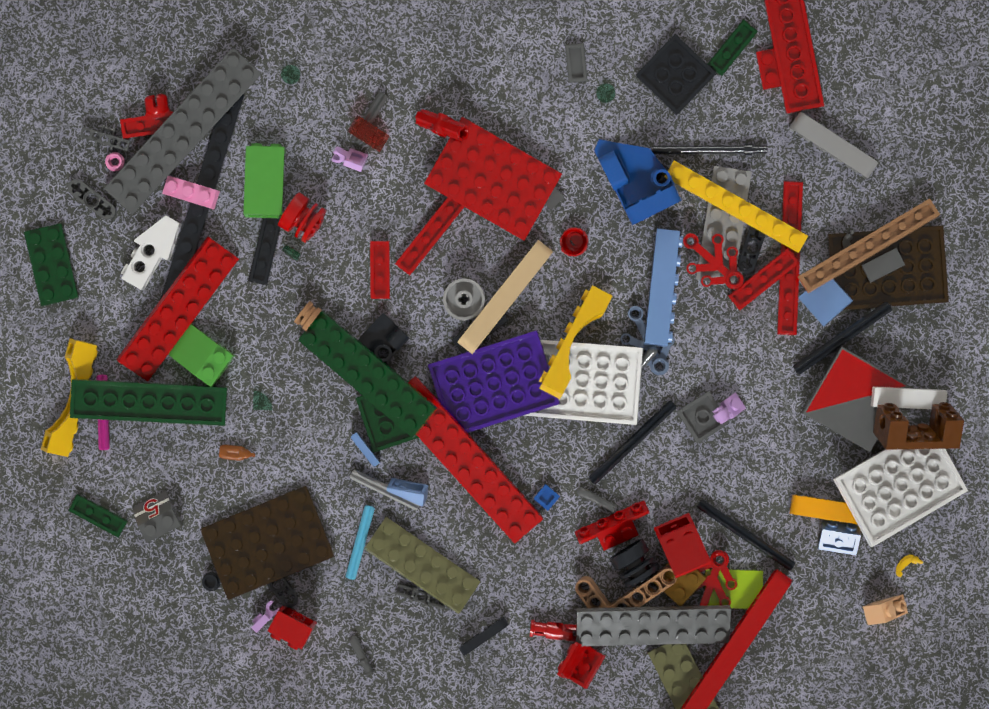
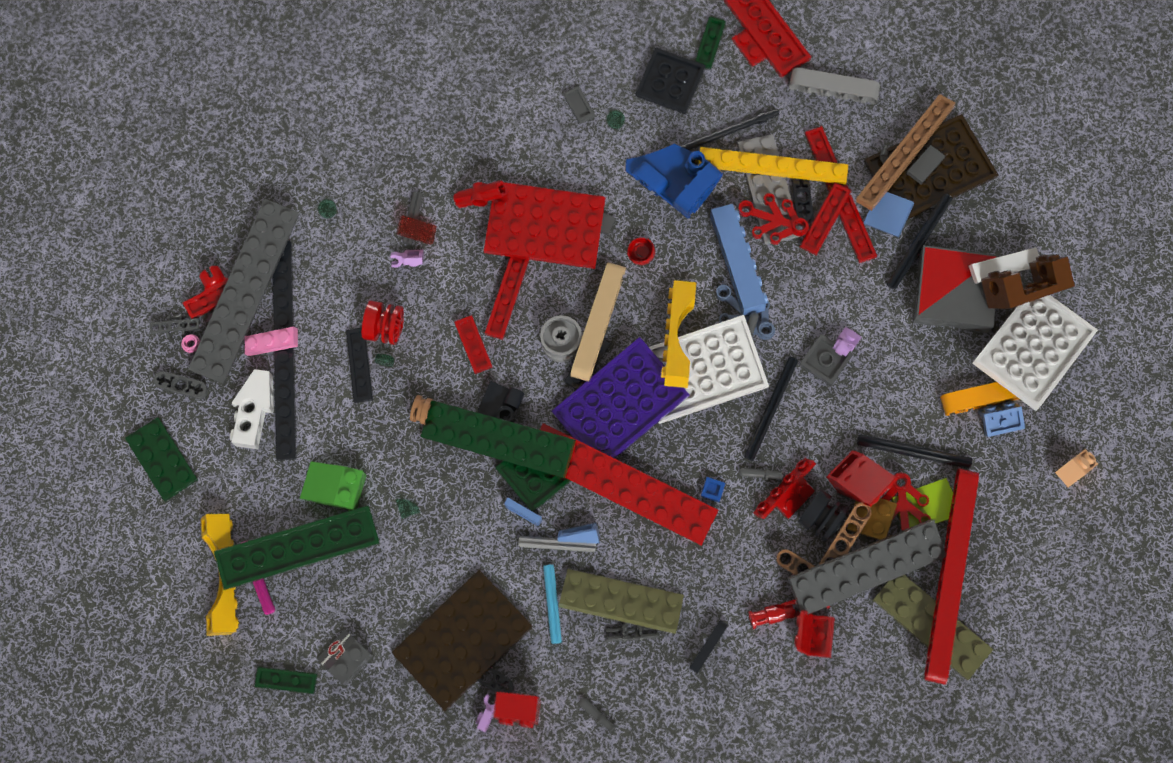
camera: 20 degrees left, 15 degrees down
(177, 309) = (295, 452): red plate -> none
(211, 581) = (421, 700): black plate -> none
(234, 452) = (398, 566): dark orange piece -> none
(264, 181) = (336, 306): bright green panel -> none
(906, 560) = (1072, 417): yellow piece -> none

